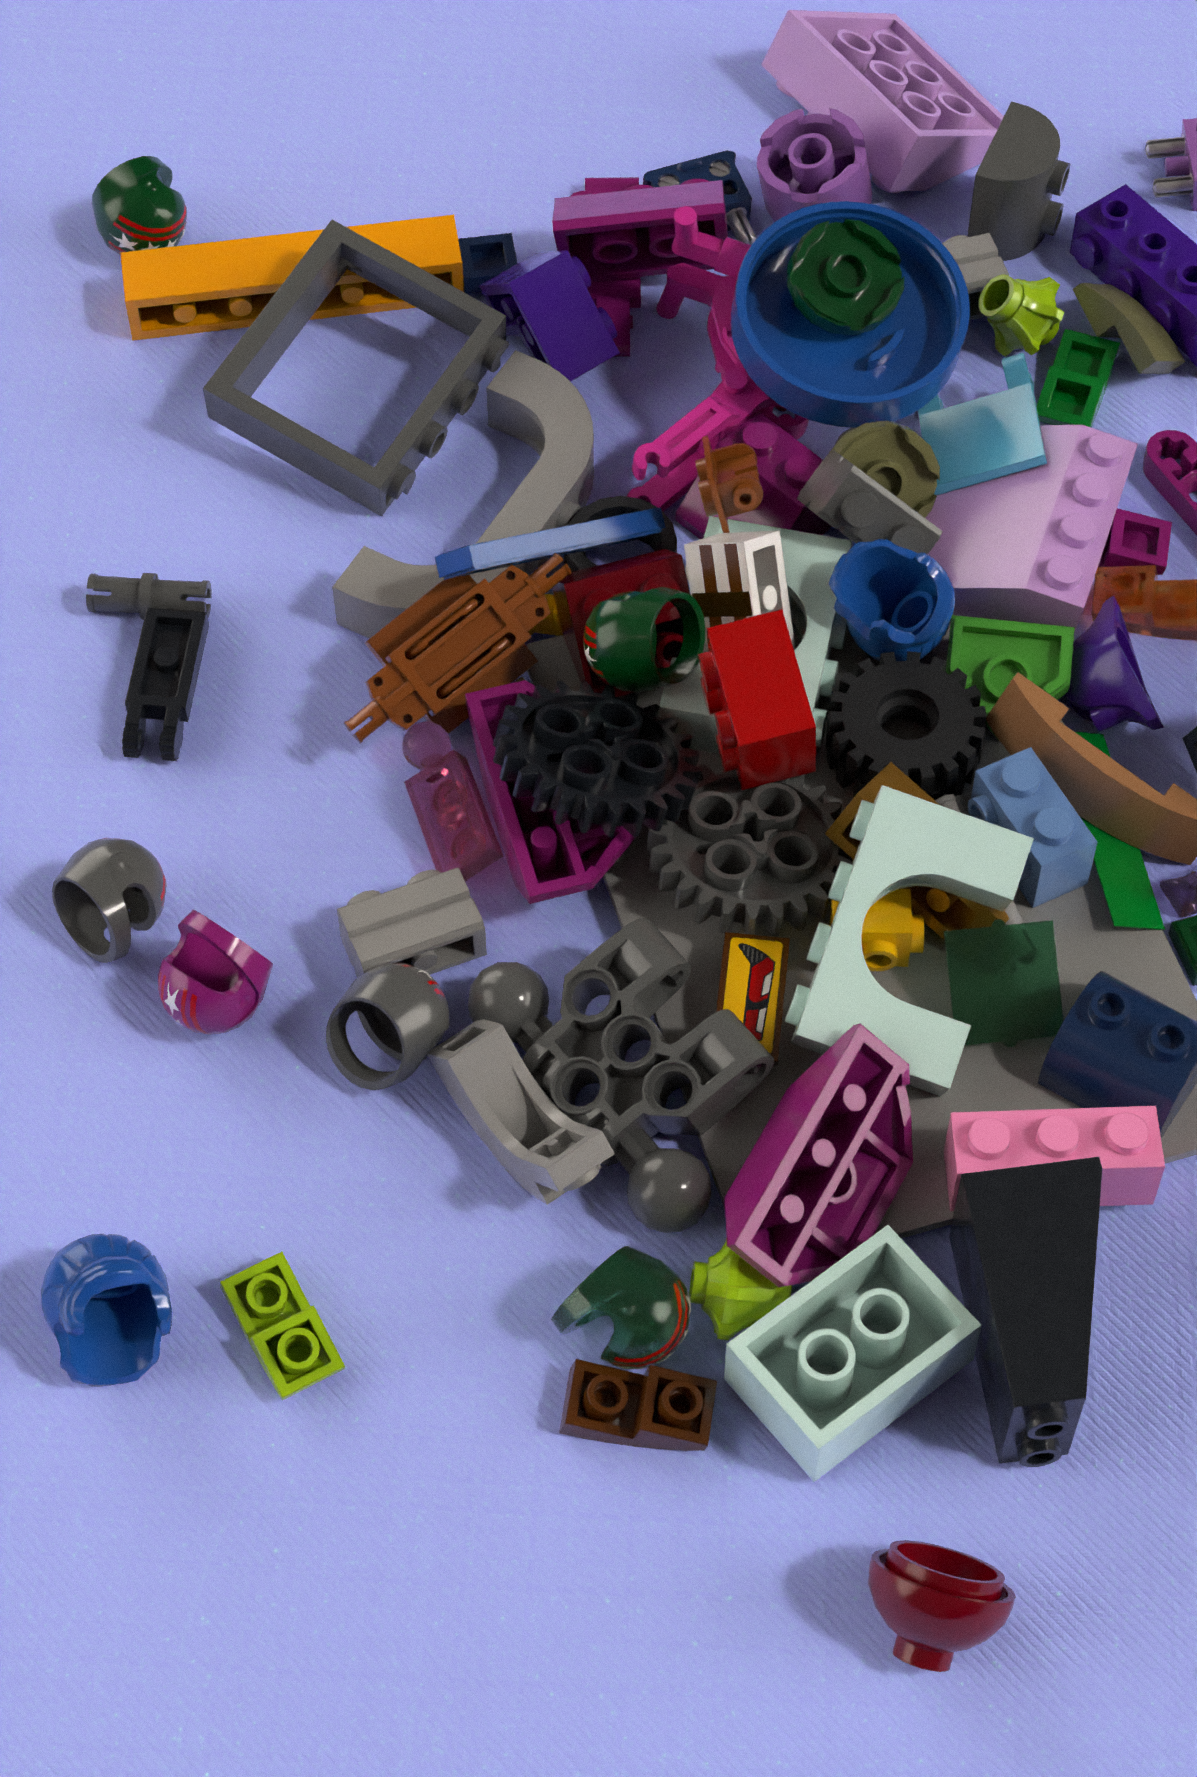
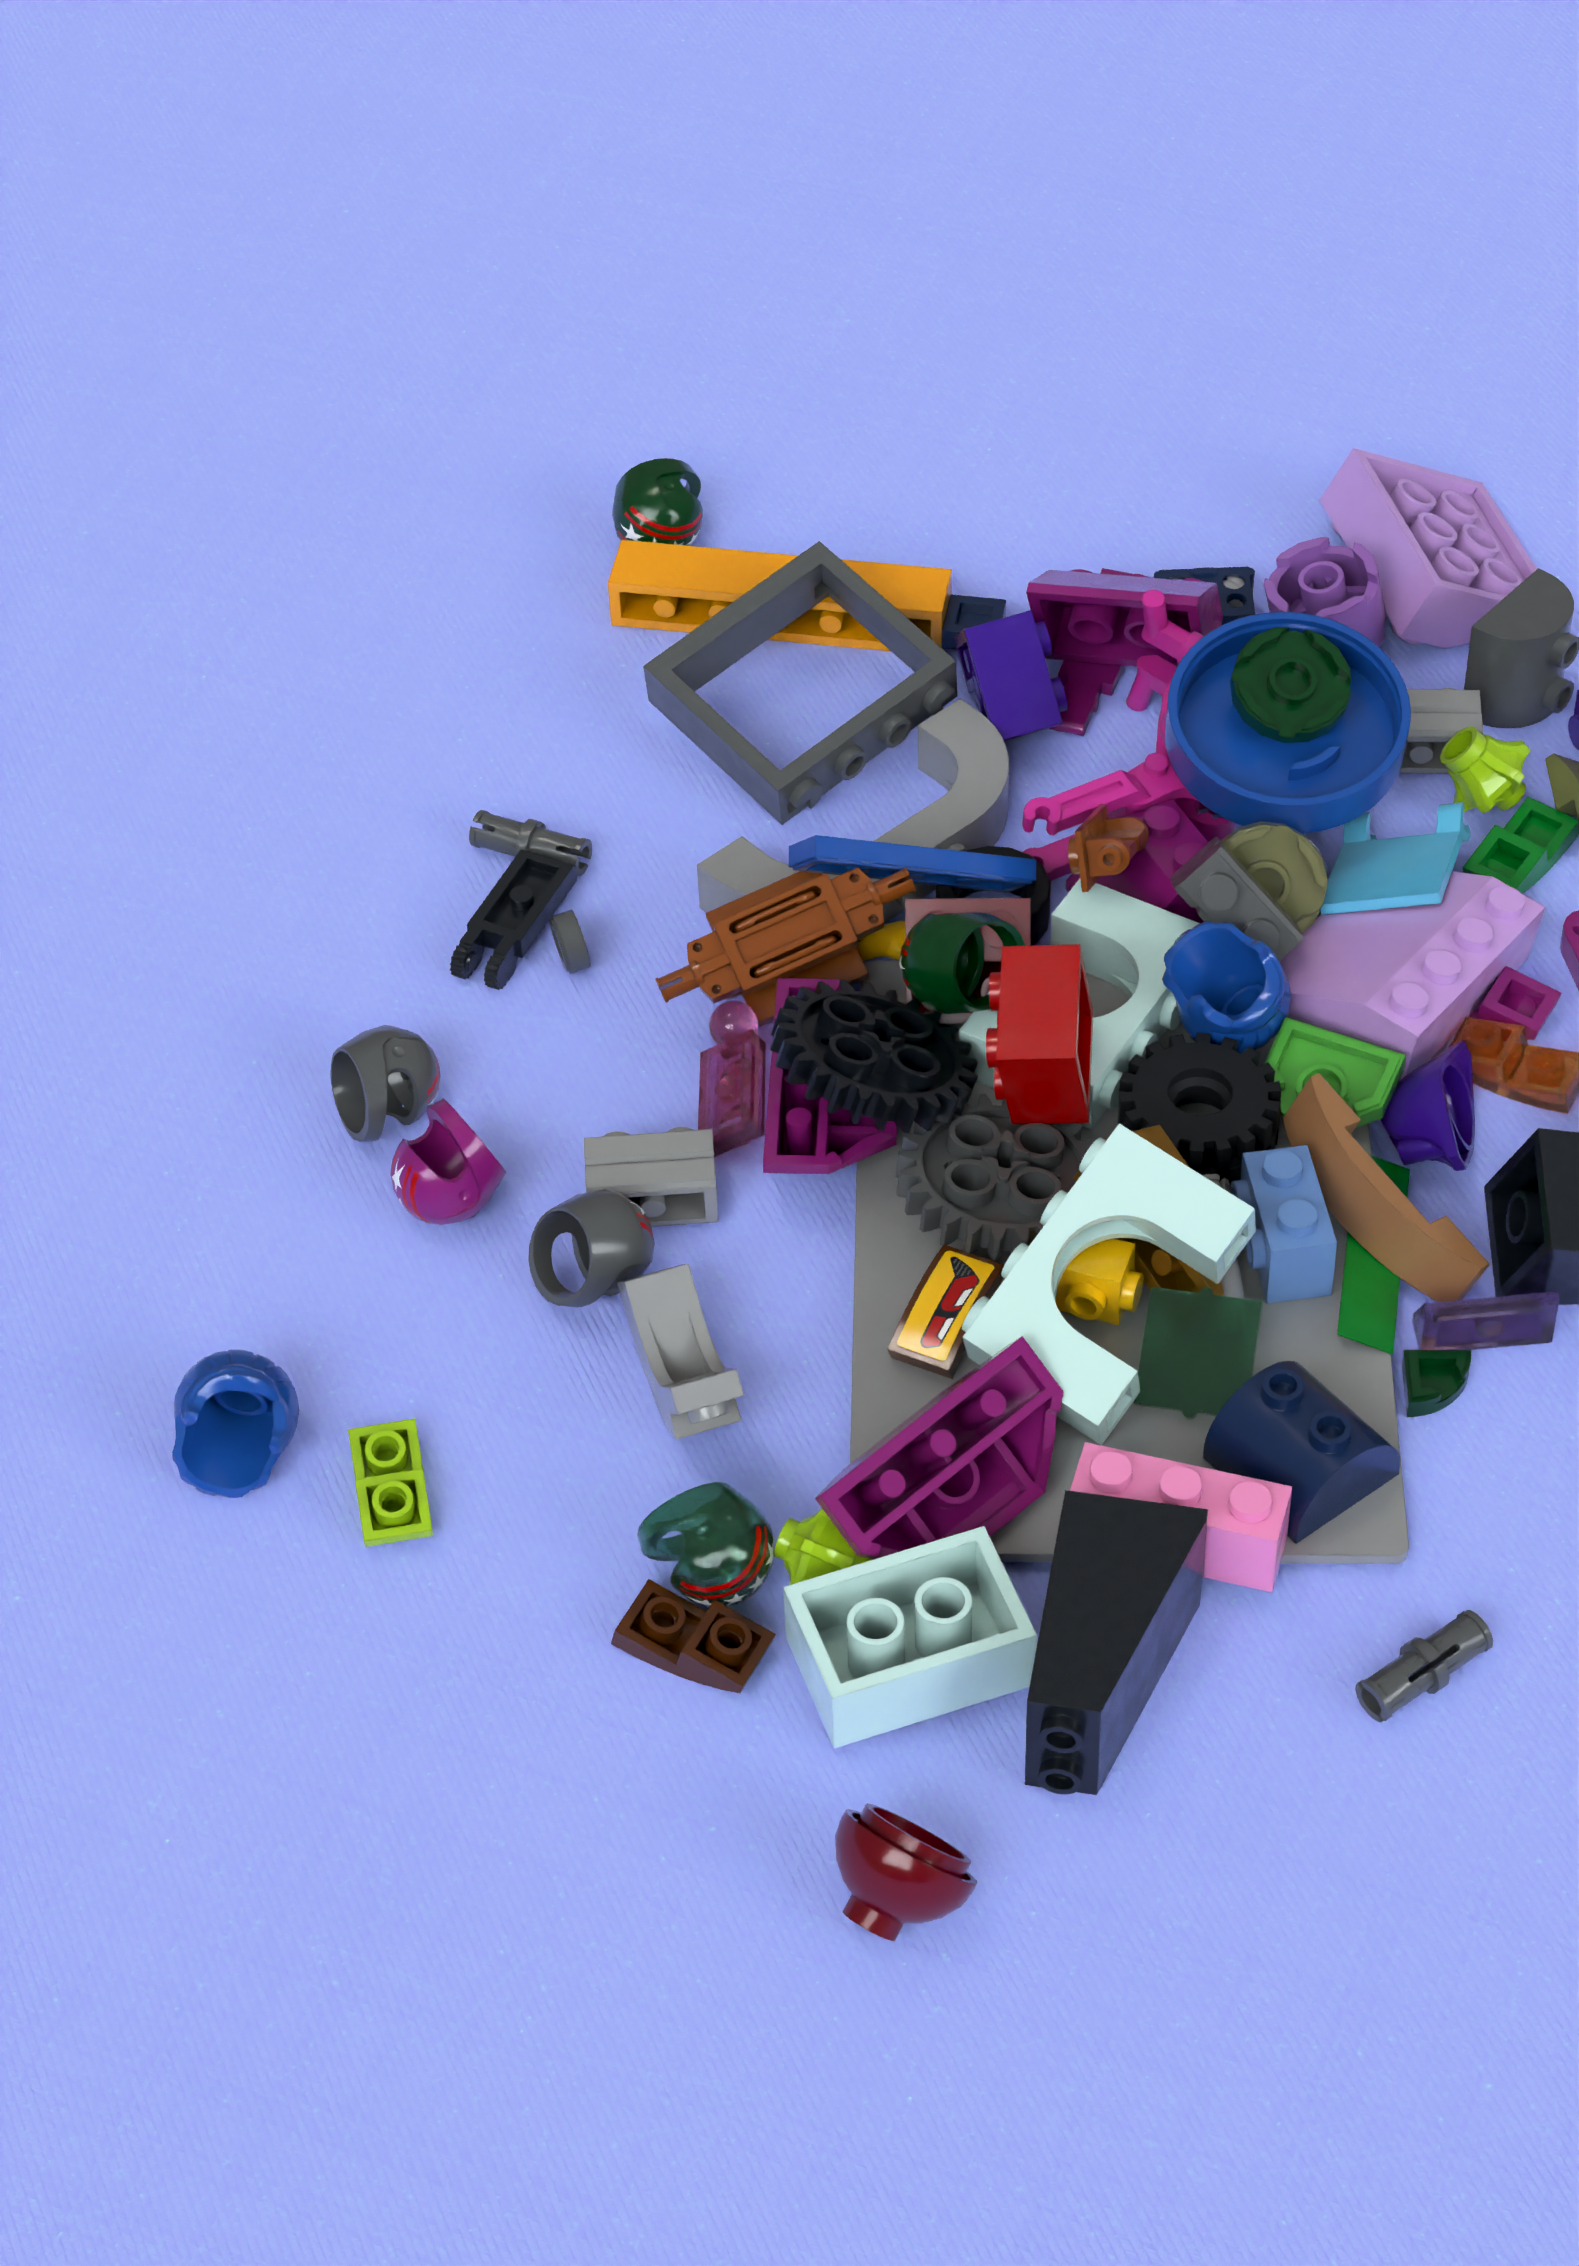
camera: 20 degrees right, 10 degrees down
(232, 695) = (569, 942): none -> dark grey tile
(716, 1058) = (791, 1341): dark grey connector -> none
(738, 577) = (1095, 922): white brick -> none

